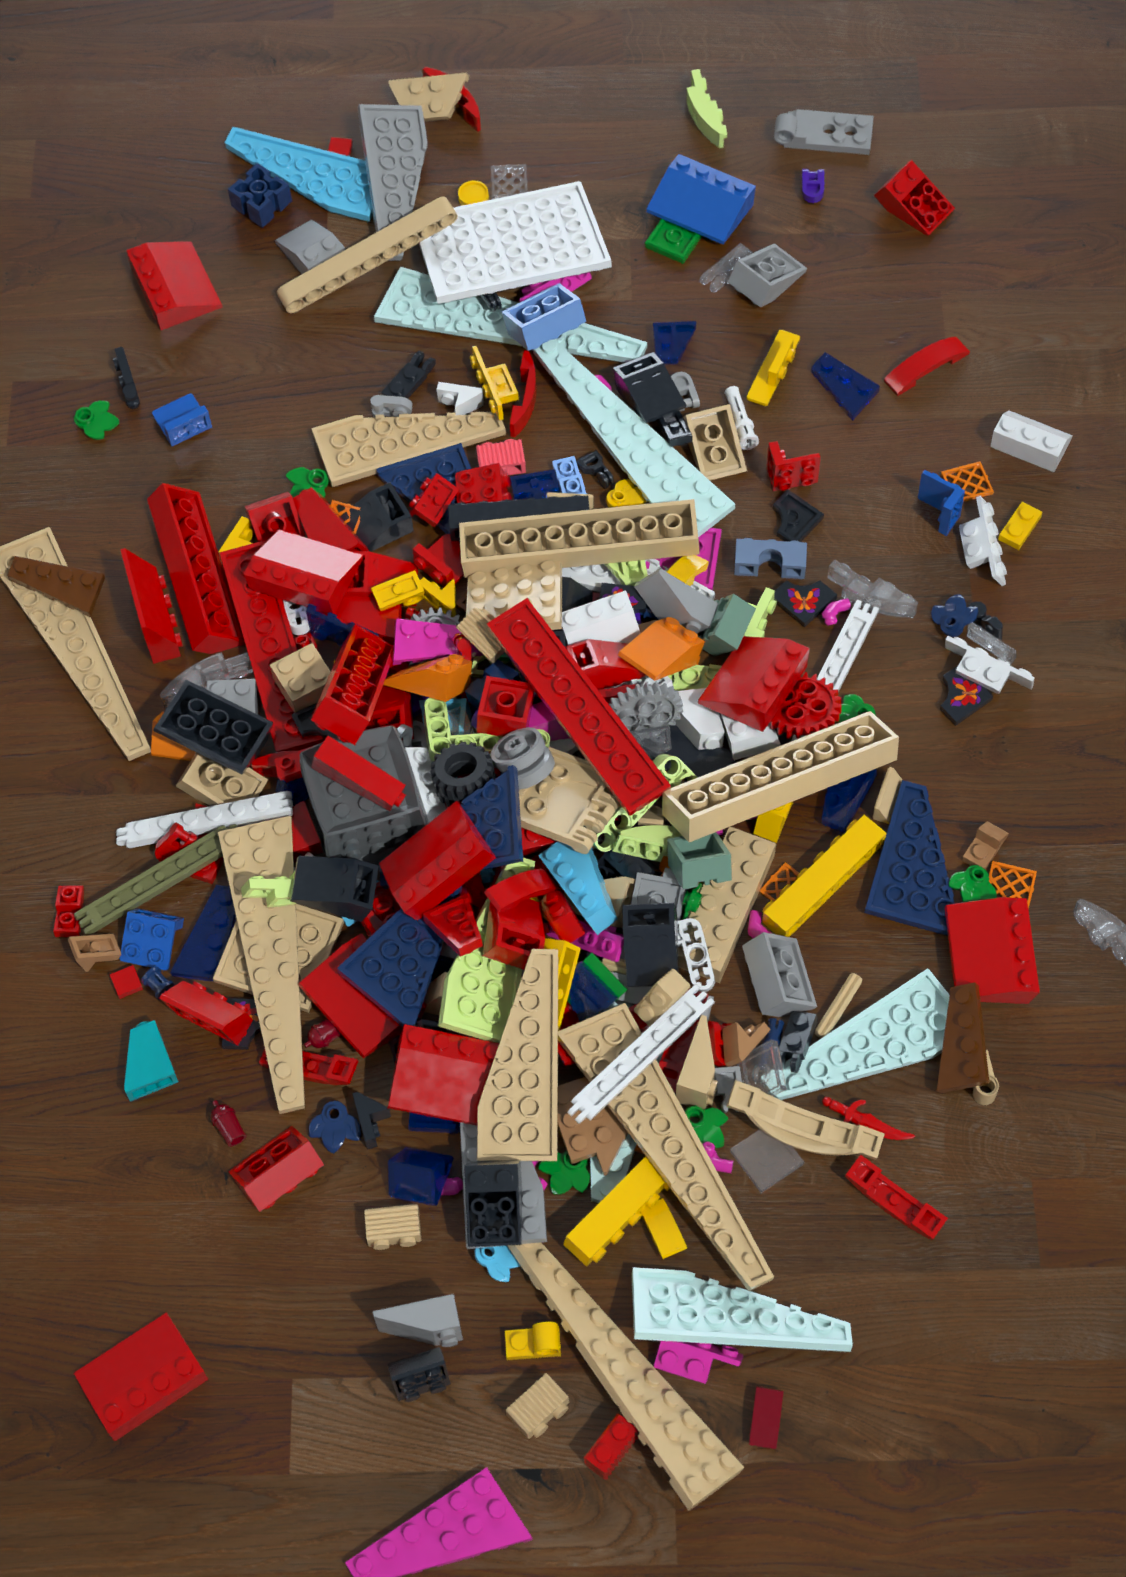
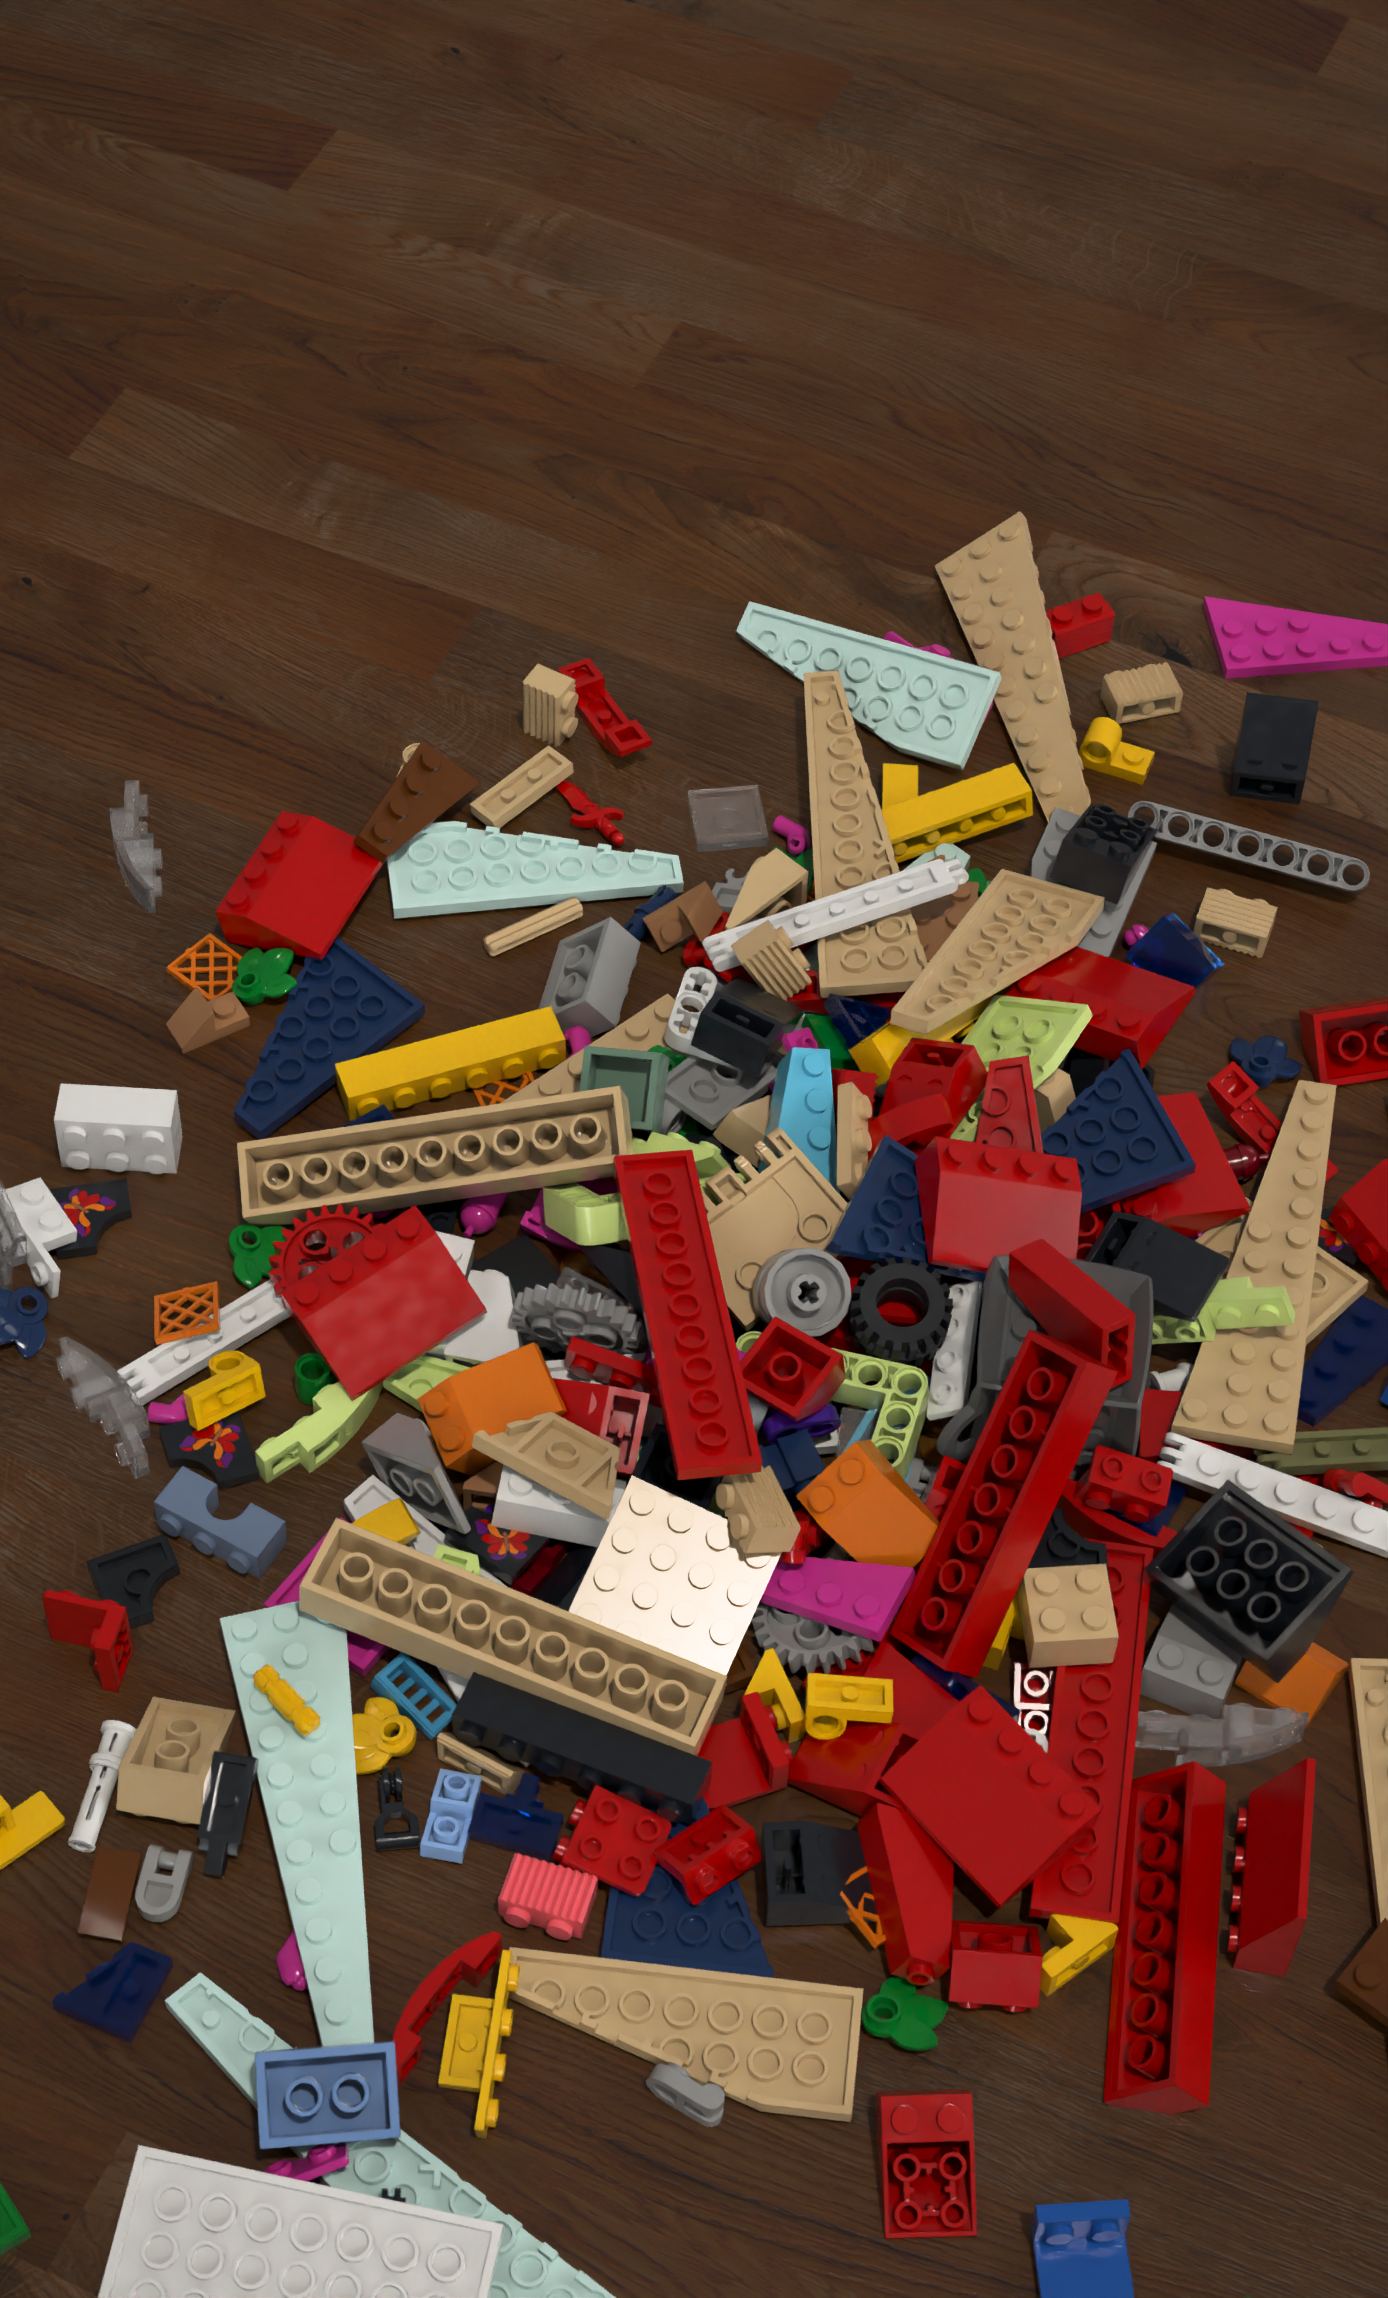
camera: 160 degrees left, 10 degrees down
(270, 429) = (926, 2163): none -> red slope
(370, 1112) = (1211, 1047): black slope -> none
(377, 1293) = (1267, 846): none -> light grey beam
(410, 377) = (625, 2149): black hinge -> none
(426, 1321) = (1248, 797): light grey slope -> none
(463, 397) = (545, 2046): white slope -> none
(541, 865) = (852, 1136): none -> tan plate
(603, 618) = (557, 1457): none -> tan wing
(648, 387) = (225, 1885): black slope -> none
(673, 470) = (286, 1700): none -> yellow axle
(703, 375) = (110, 1893): none -> reddish brown slope
(727, 625) = (356, 1411): sand green piece -> none
(764, 1069) = (681, 867): clear tile -> none
(766, 1417) = (882, 593): dark red slope -> none
(797, 1038) = (618, 896): black hinge -> none
(801, 1127) = (662, 808): tan piece -> none
(812, 618) = (232, 1386): none -> yellow plate
(852, 663) = (191, 1329): none -> orange window
(887, 796) = (309, 1120): tan slope -> none
(909, 1105) = (522, 788): none -> tan plate
(929, 1170) = (549, 705): none -> tan brick
(977, 734) = (118, 1128): none -> white brick

